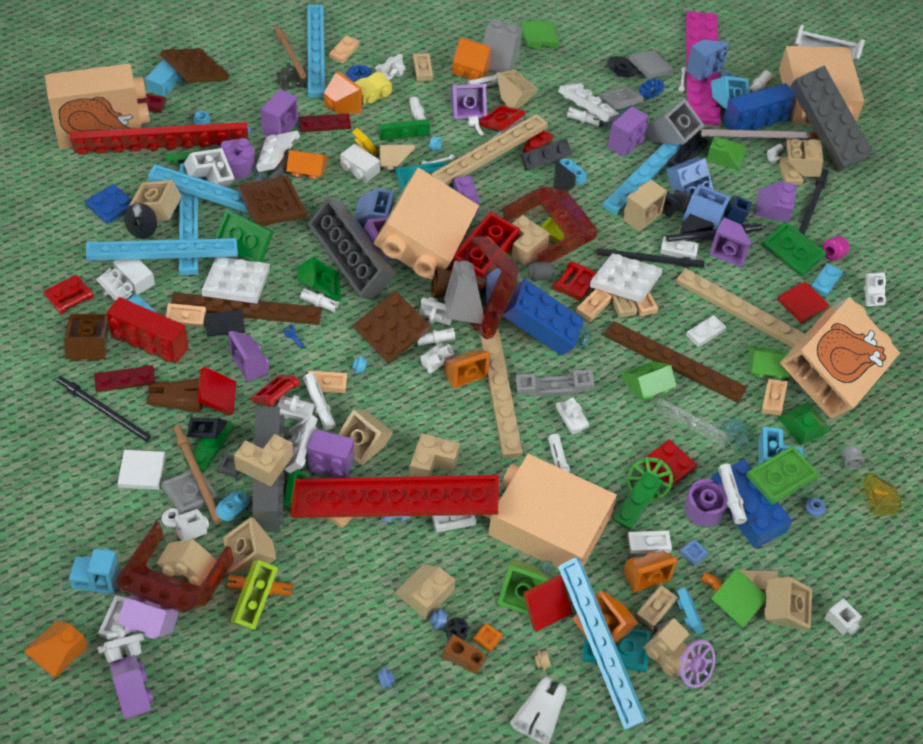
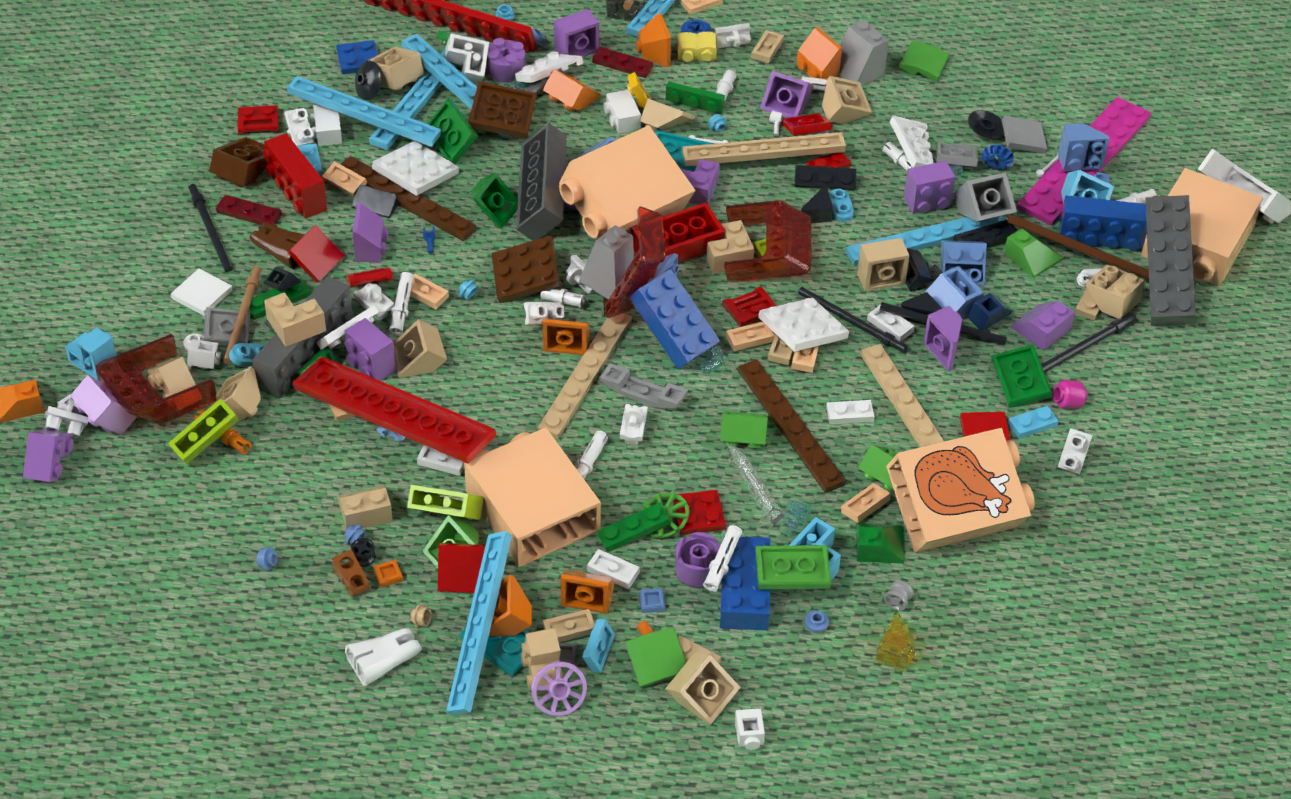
camera: 35 degrees right, 5 degrees down
(319, 300) = (479, 218): white pin -> none
(433, 453) = (468, 394): tan brick -> none
(494, 555) = (445, 502): none -> lime brick
(541, 271) = (721, 282): dark grey brick -> none

